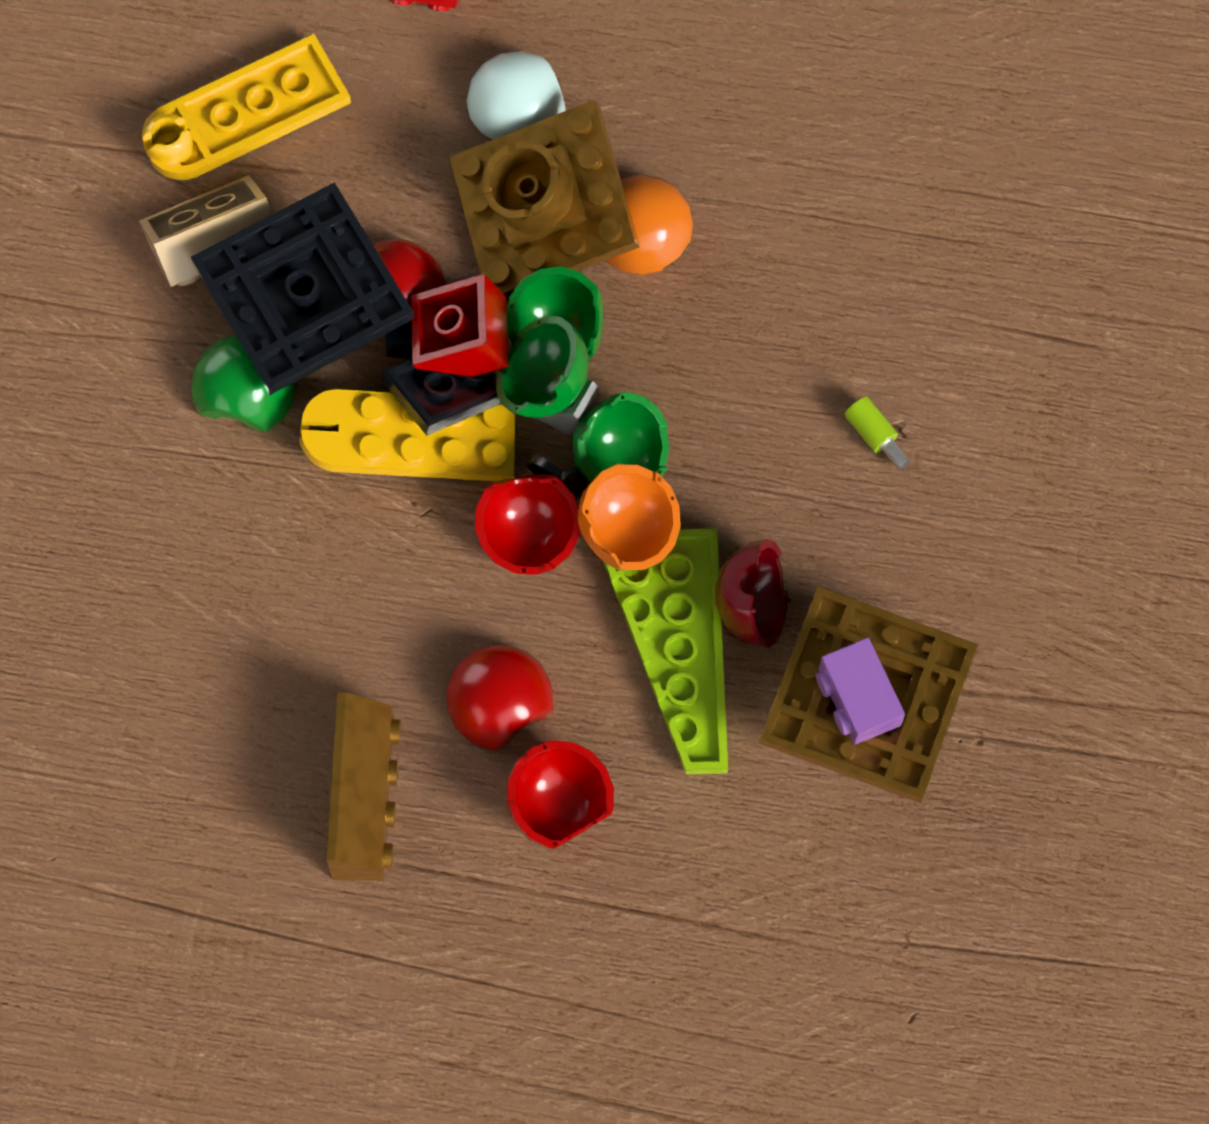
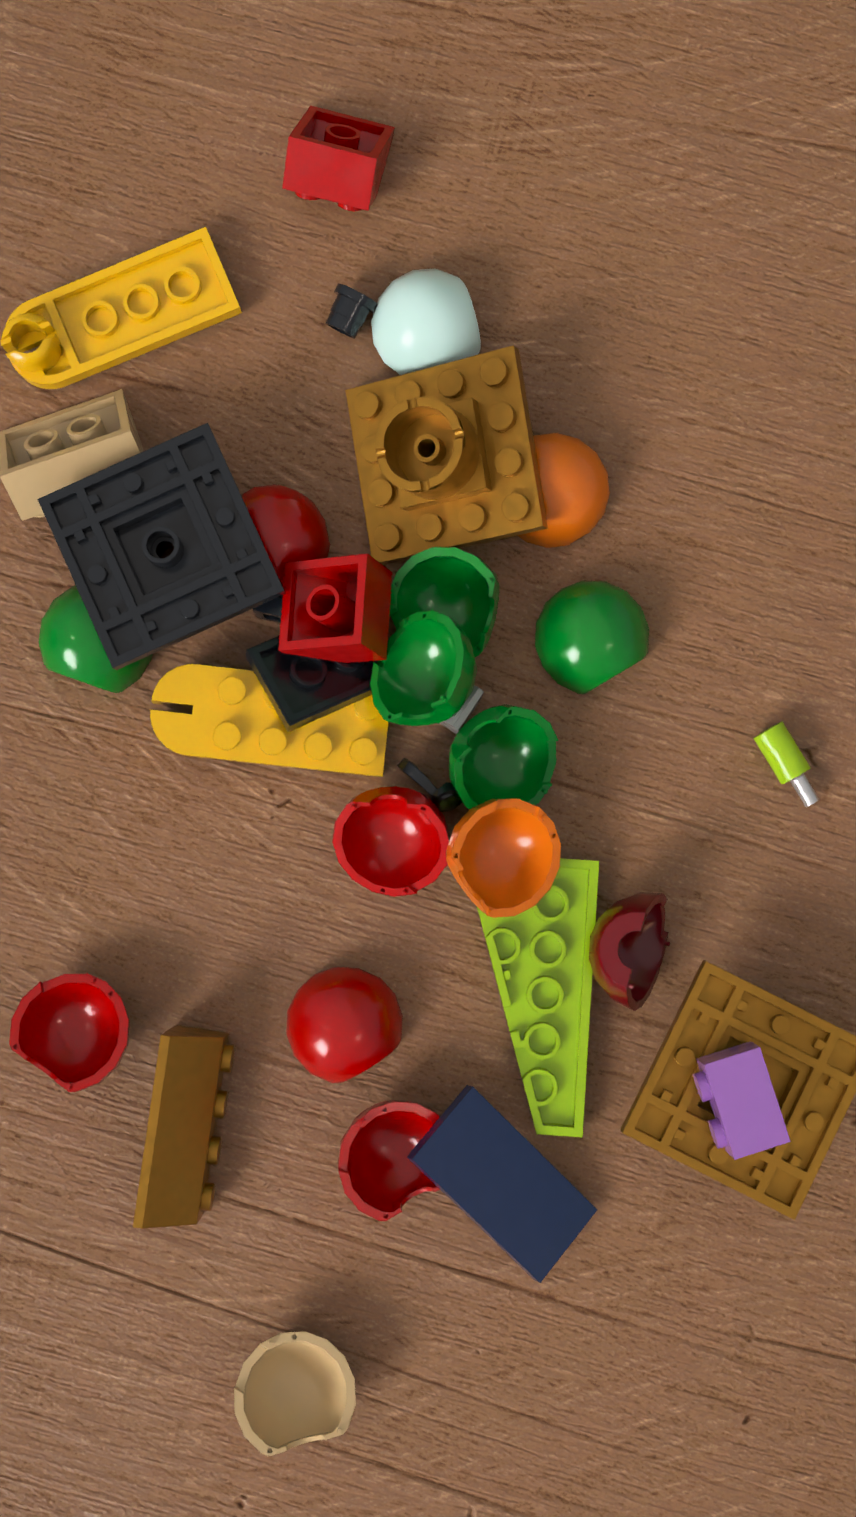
camera: 10 degrees right, 15 degrees up
(252, 712) = (71, 1030): none -> red cylinder
(447, 91) = (349, 310): none -> black piece
(486, 1012) = (294, 1392): none -> tan cylinder
(659, 811) = (502, 1183): none -> dark blue tile
(688, 341) = (590, 634): none -> green cylinder

